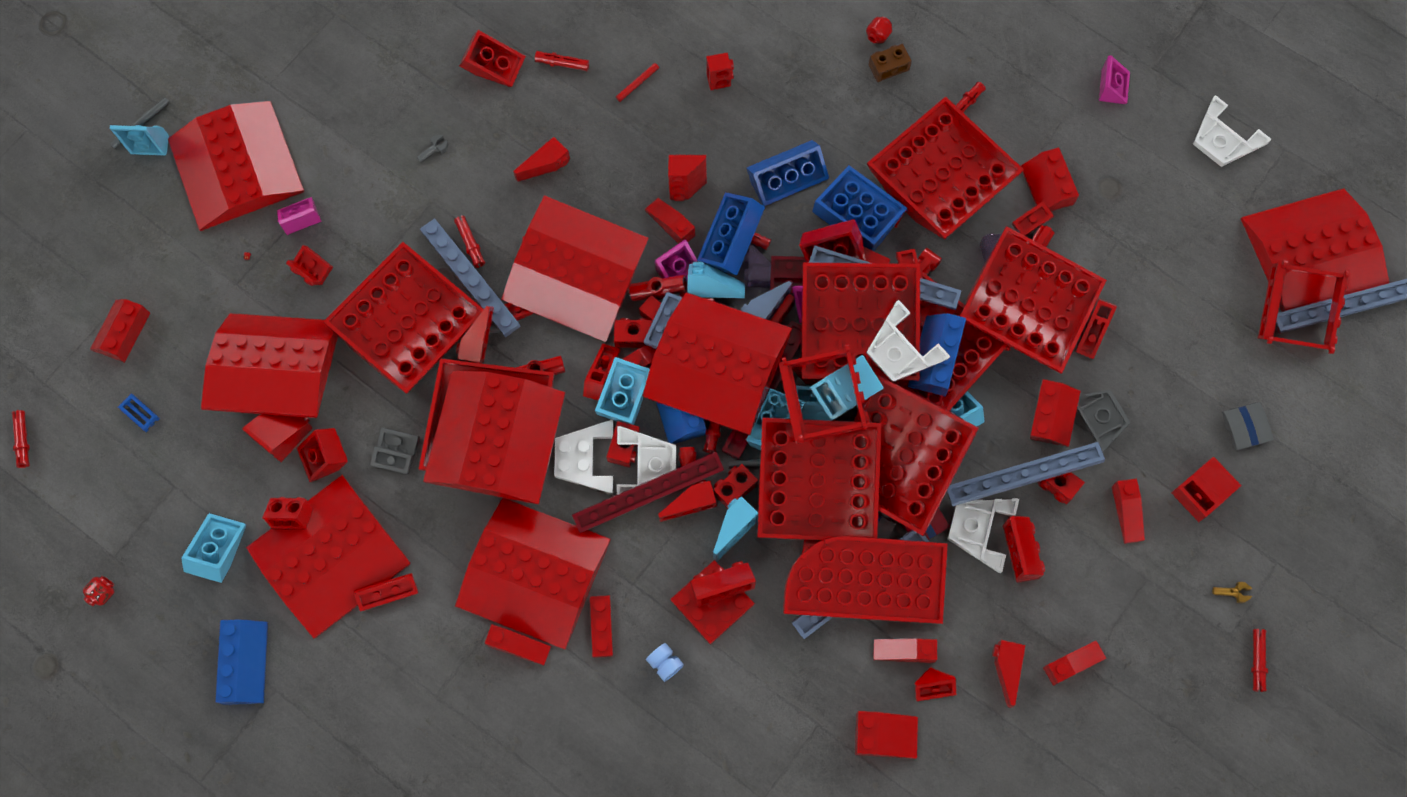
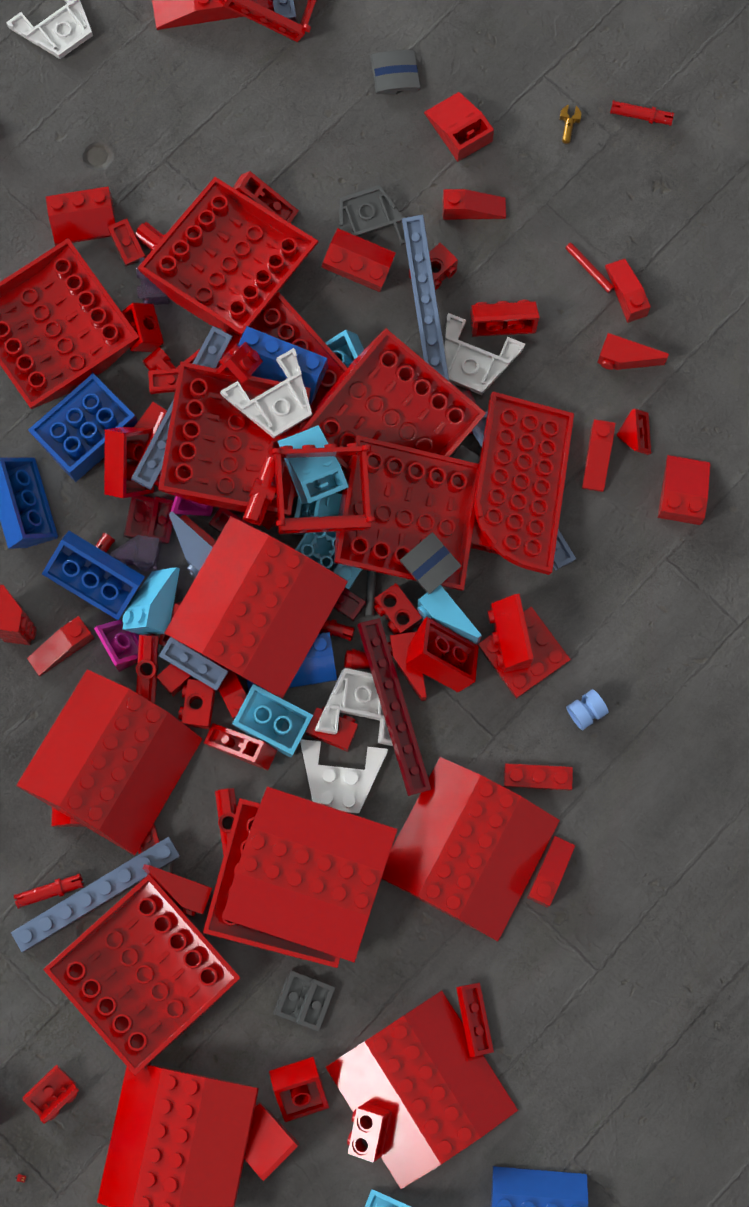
camera: 85 degrees left, 5 degrees up
(696, 527) = (443, 655): none -> red slope
(775, 502) = (430, 563): none -> dark grey slope
(812, 347) = (261, 493): none -> red piece
(930, 316) = (241, 361): none -> red bracket
(967, 245) = (145, 323): none -> red brick
(1090, 625) = (588, 266): none -> red bar

